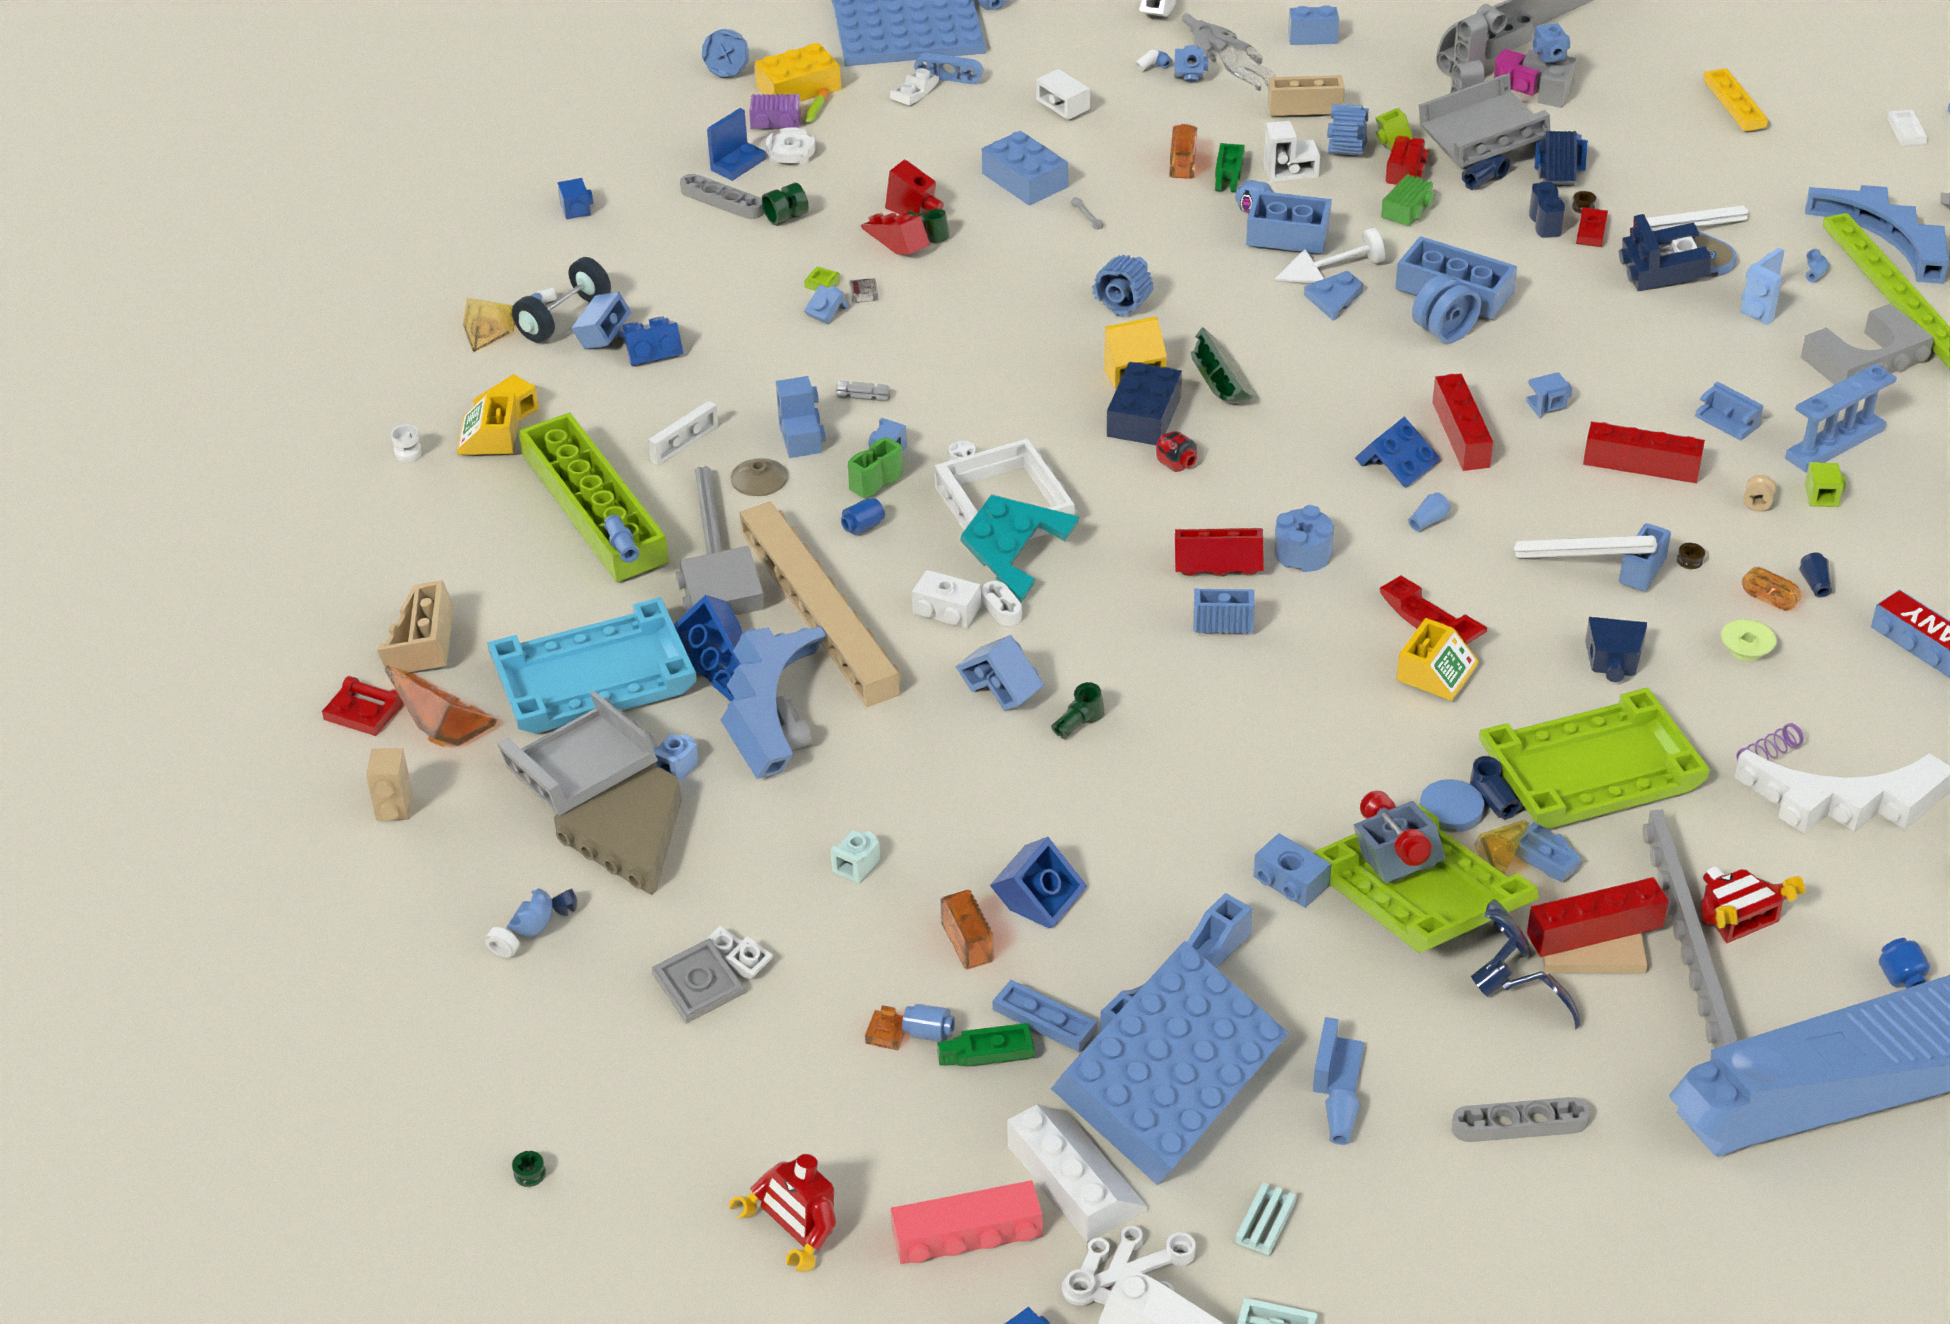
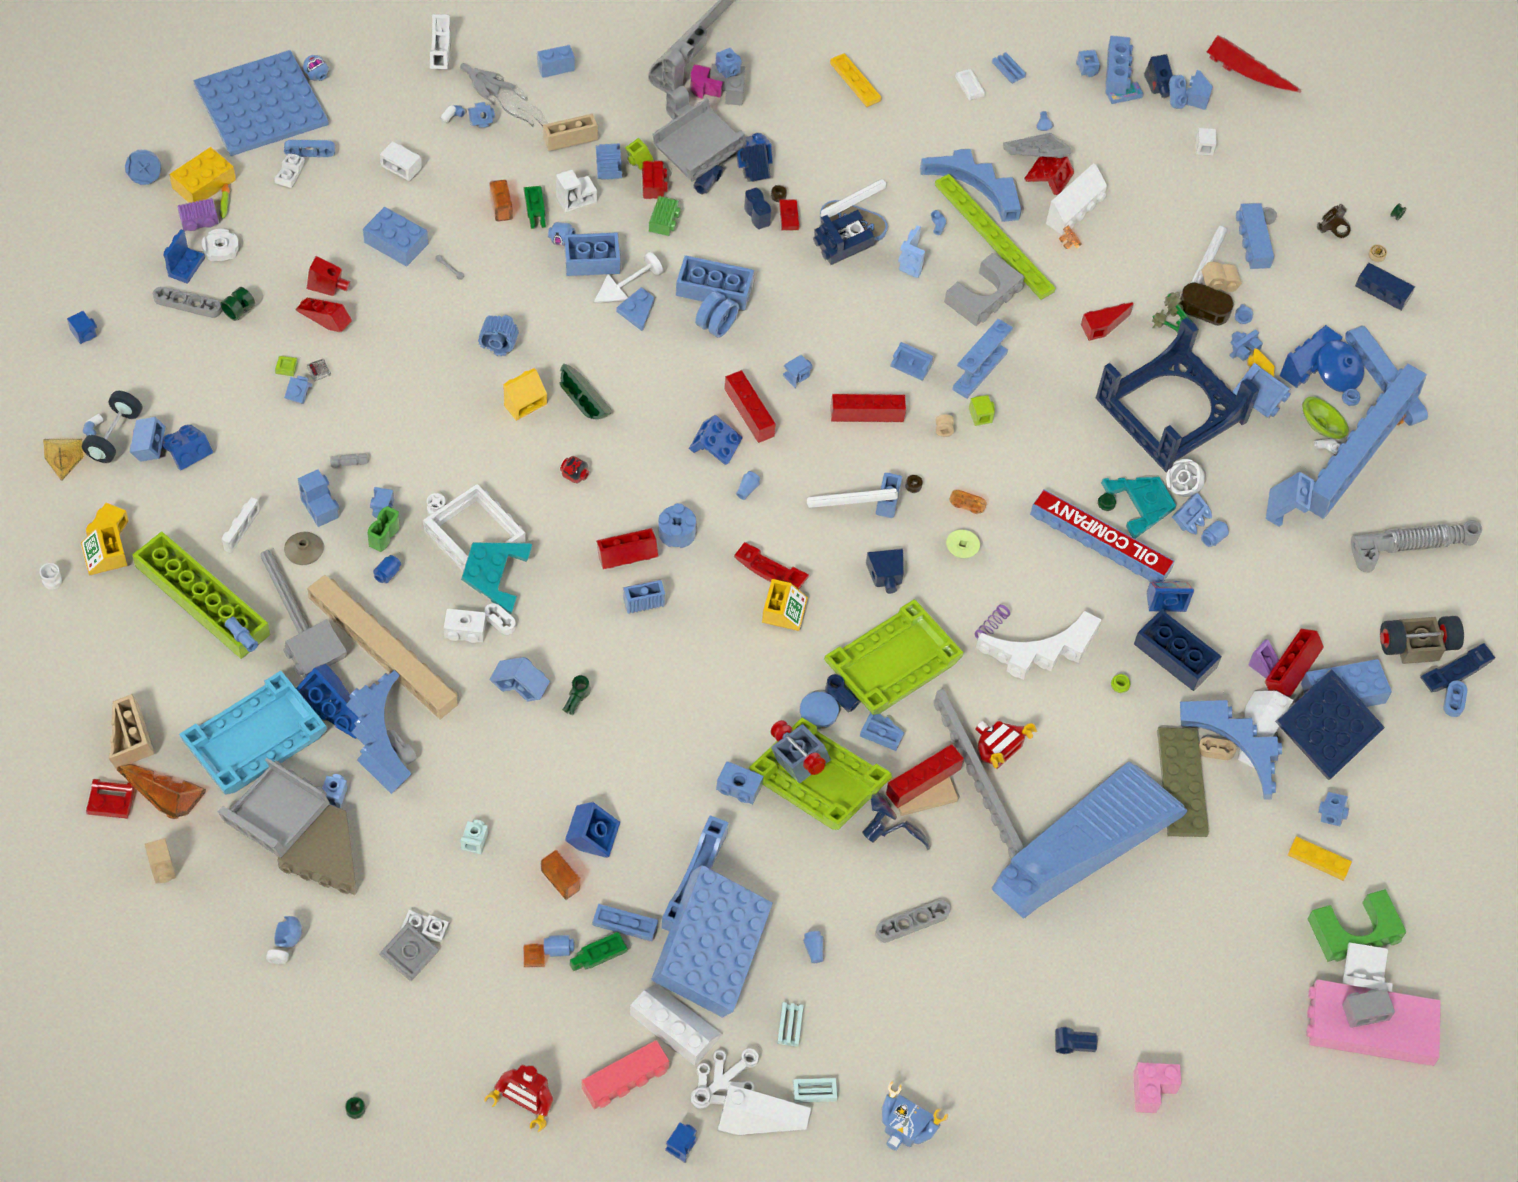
camera: 25 degrees left, 15 degrees up
(565, 899) = (304, 915): dark blue hinge -> none
(935, 224) = (348, 299): dark green pin -> none
(1144, 403) = (542, 434): dark blue brick -> none
(1337, 1060) = (801, 910): medium blue panel -> none
(1500, 844) = (857, 738): clear yellow slope -> none
(1816, 572) = (991, 483): dark blue cone -> none
(1904, 963) = (1098, 762): blue head -> none

